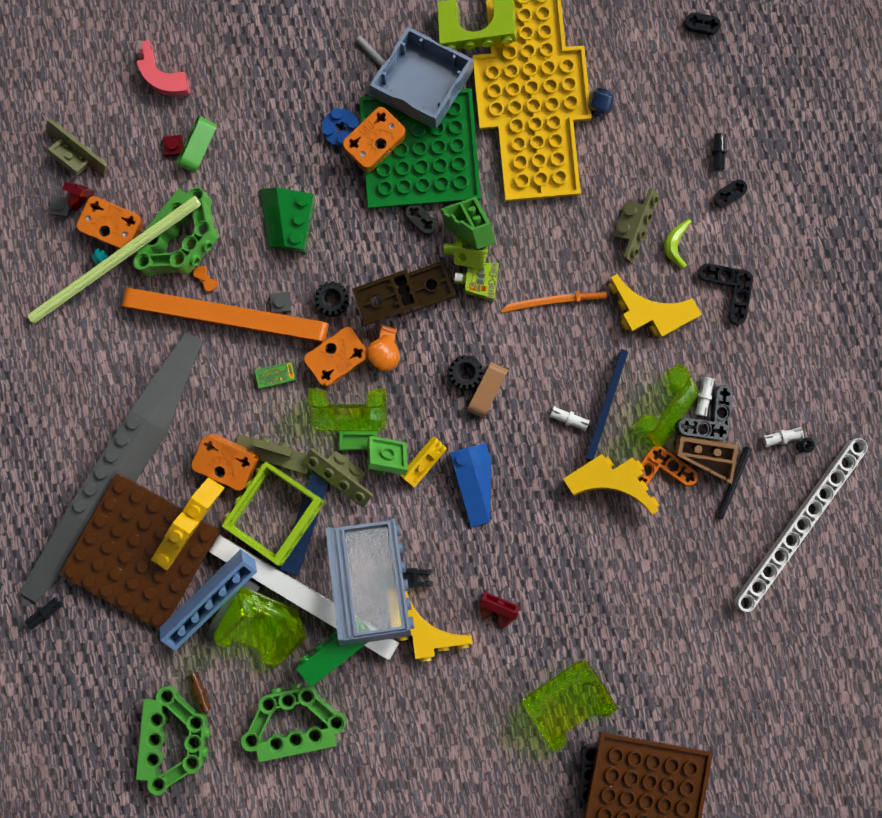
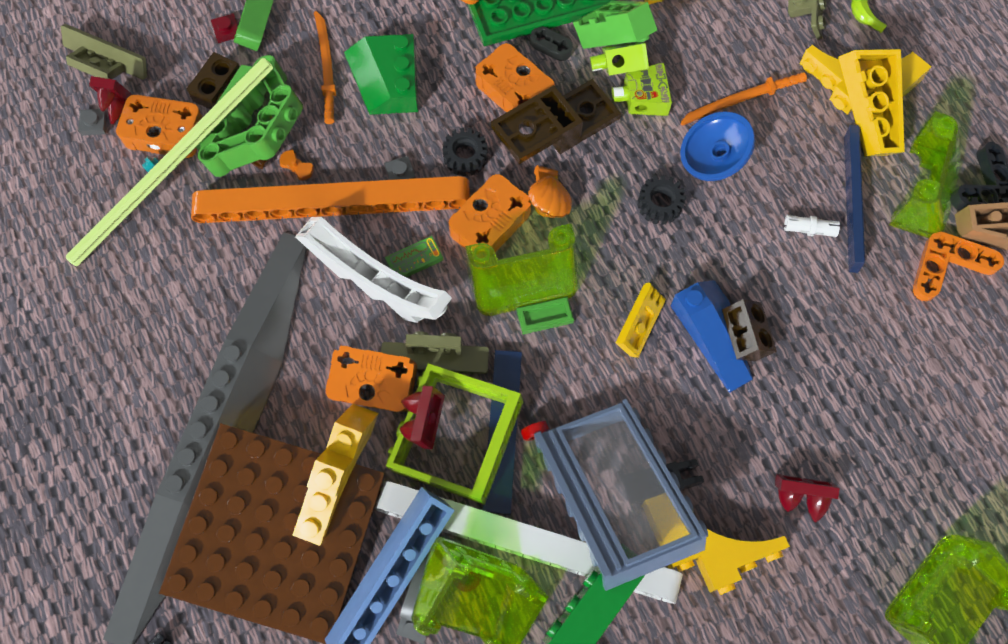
camera: 10 degrees left, 15 degrees down
(153, 192) = (212, 80): none -> dark brown brick
(240, 386) = (379, 282): none -> white arch
(241, 220) = (328, 88): none -> orange sword
(257, 495) = (428, 408): none -> dark red tile
(328, 523) = (529, 431): none -> red tile
(340, 474) = (533, 361): olive bracket -> none
(377, 253) = (510, 77): none -> orange axle
(387, 455) = (592, 320): bright green tile -> none
(487, 390) = (696, 214): medium nougat beam -> none
(495, 489) = (749, 330): none -> dark brown brick
(510, 337) = (712, 137): none -> blue dish
(624, 479) = (913, 278): yellow arch -> none
(645, 334) = (876, 98): none -> yellow wedge
(704, 396) = (970, 161): white pin -> none
(734, 282) = (951, 32): black beam -> none

